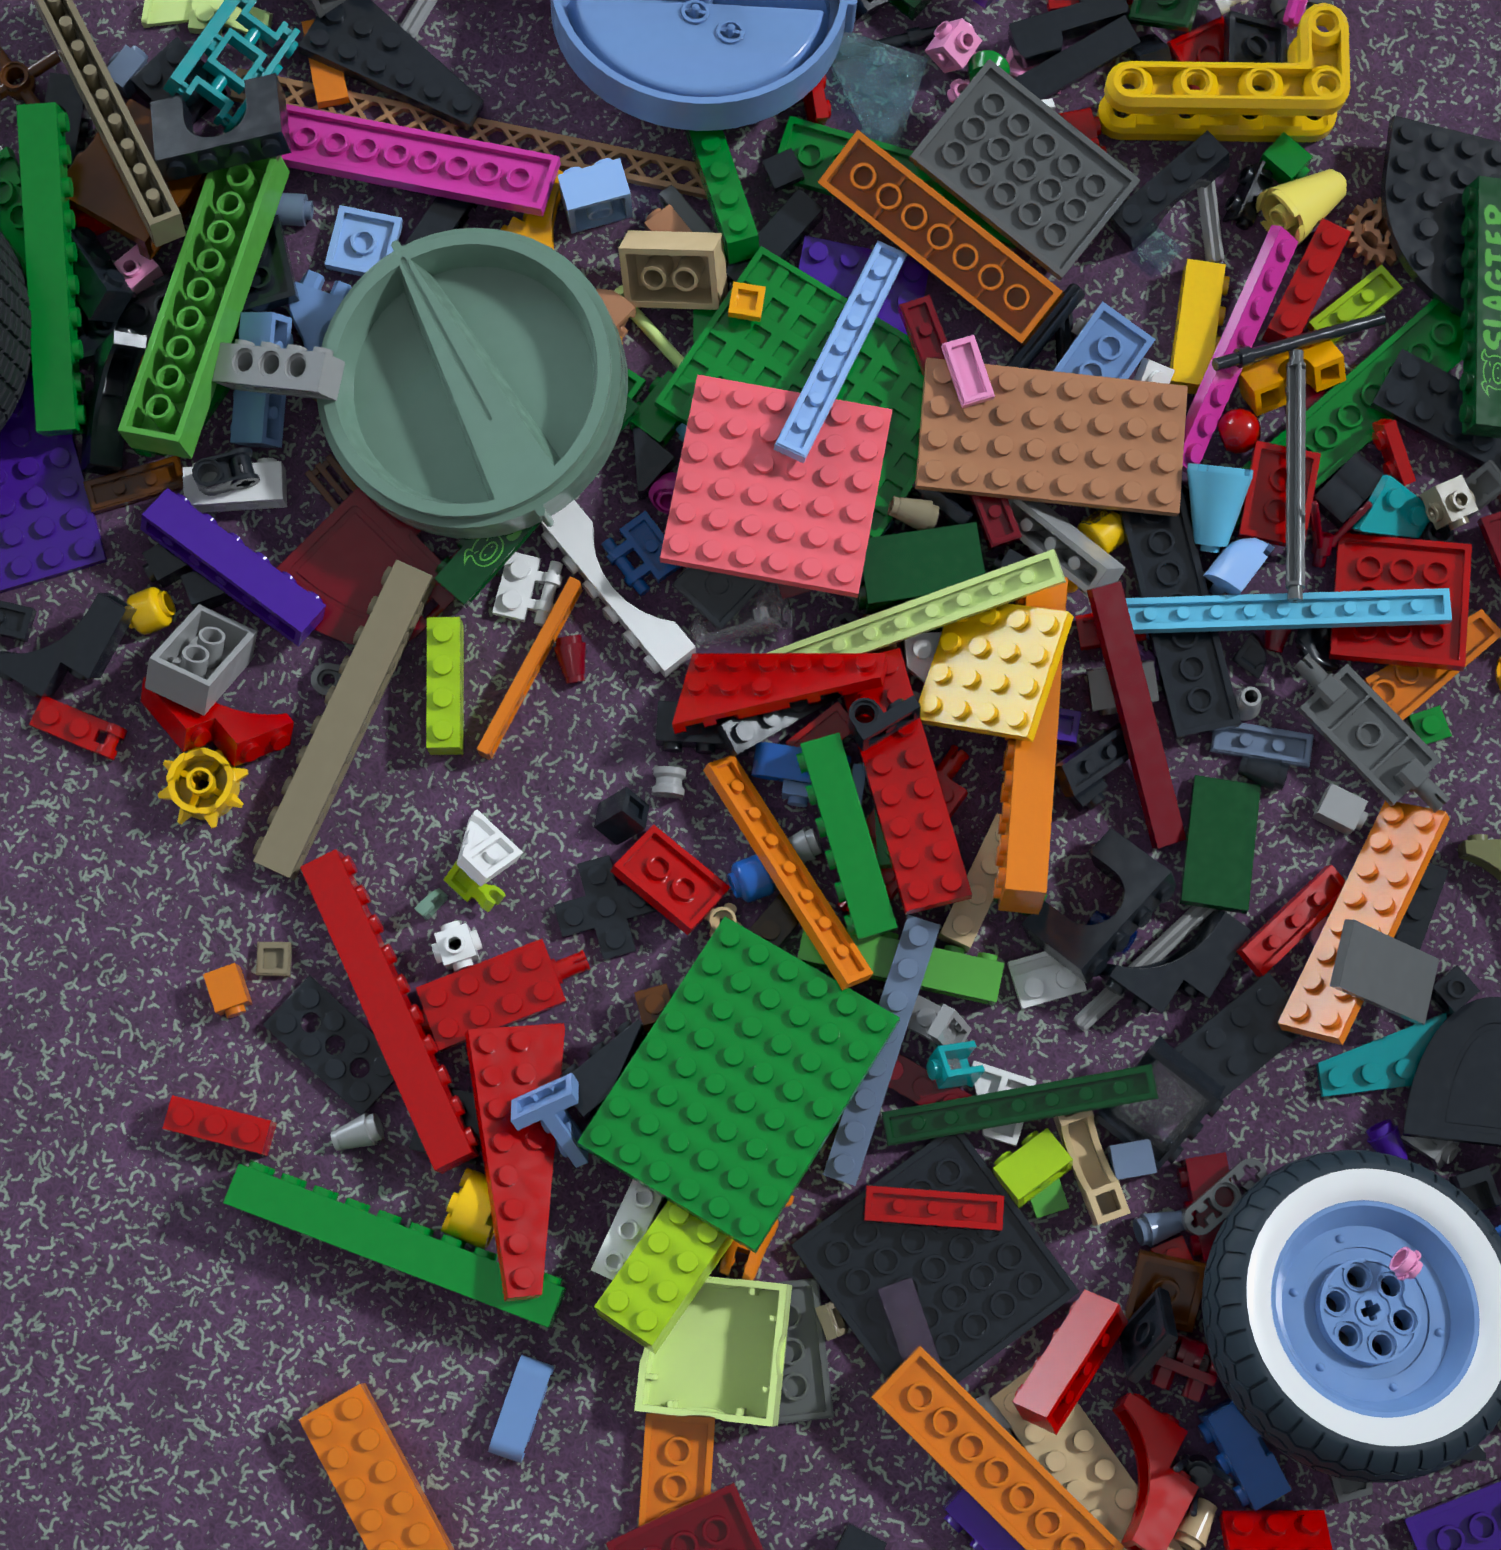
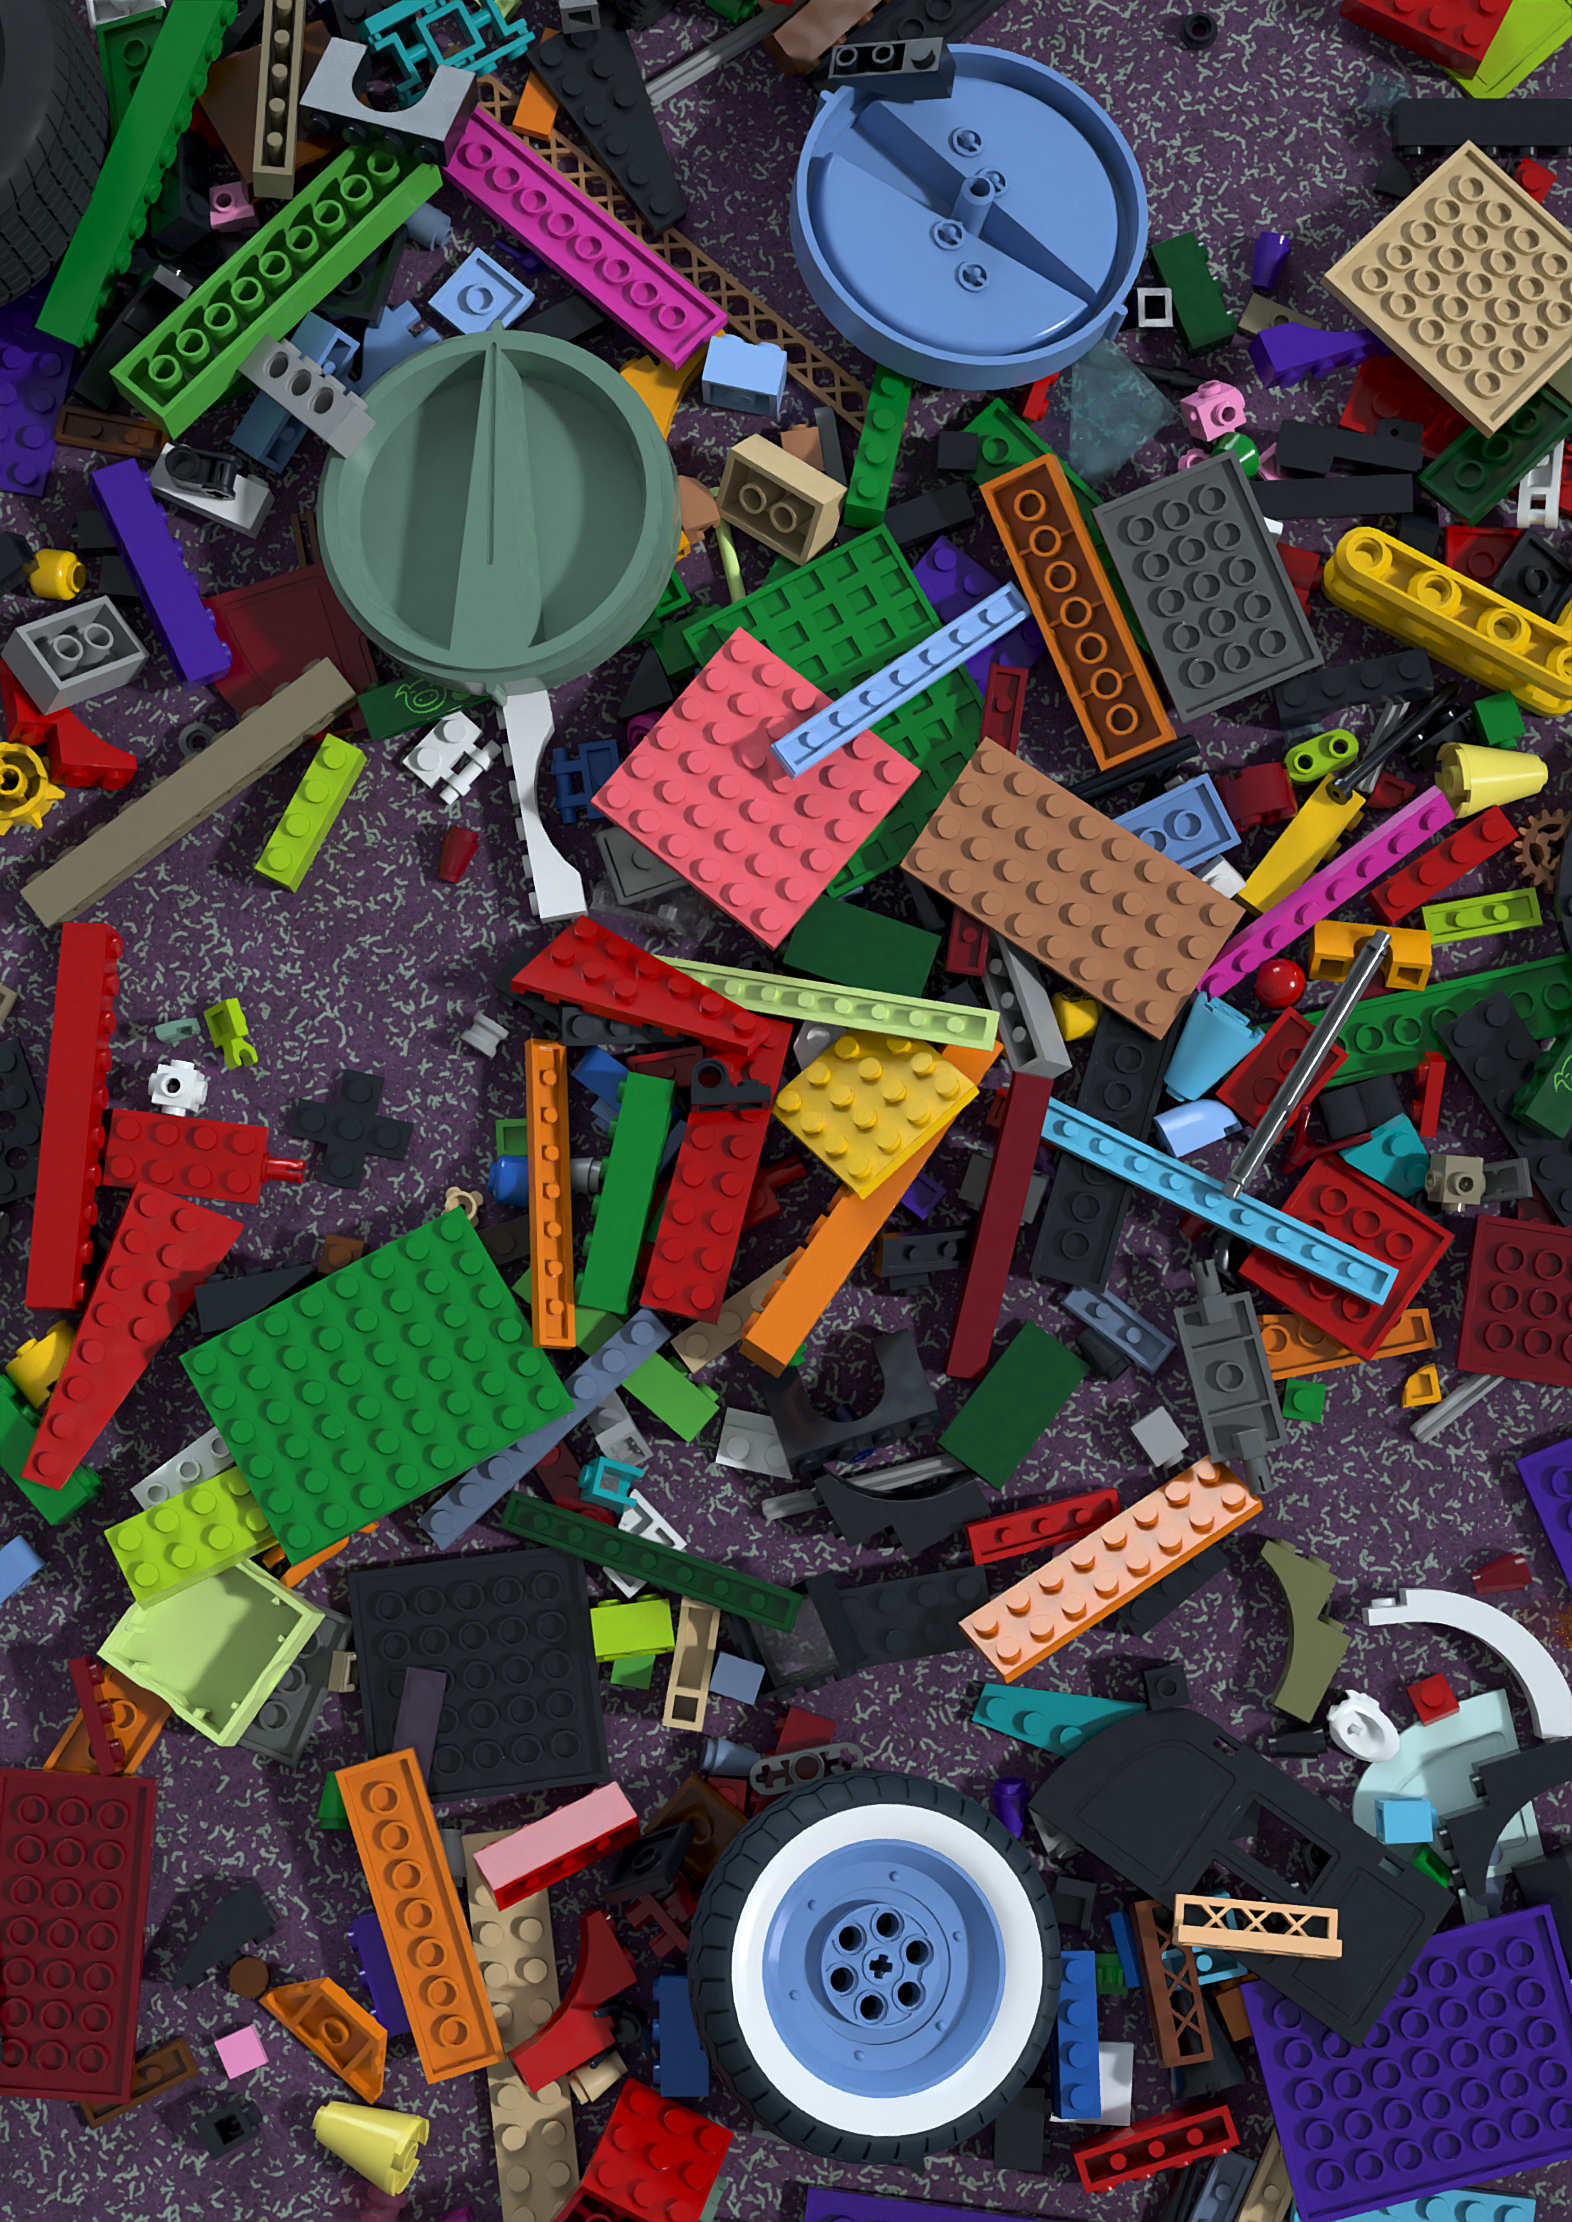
camera: 30 degrees right, 5 degrees up
(384, 197) = (529, 261): none -> dark purple hand
(485, 850) = (259, 1005): white wing -> none
(530, 668) = (408, 841): orange tile -> none
(549, 1107) = (174, 1308): medium blue bracket -> none
(621, 816) = (418, 1044): black panel -> none
(661, 1457) = (97, 1714): none -> dark red plate
(670, 879) = (429, 1136): red plate -> none
(733, 847) = (512, 1137): none -> bright green tile
(746, 301) = (833, 575): light orange plate -> none
(881, 1428) = (332, 1808): none -> green cone
(914, 512) = (884, 892): dark tan cone -> none
(934, 1208) = (508, 1616): red plate -> none
(967, 371) = (1018, 774): bright pink tile -> none
(1148, 300) = (1258, 796): none -> dark red brick
(1173, 250) = (1321, 756): none -> lime plate
(1205, 265) = (1341, 789): none -> black bar
(1236, 252) = (1389, 792): none -> red tile
(1246, 355) = (1326, 911): black bar -> none
(1248, 710) = (1120, 1284): light grey cone -> none
(1252, 655) = (1159, 1227): black tile -> none
(1384, 972) = (1095, 1632): dark grey tile -> none
(1406, 1263) = (940, 1941): bright pink plate -> none

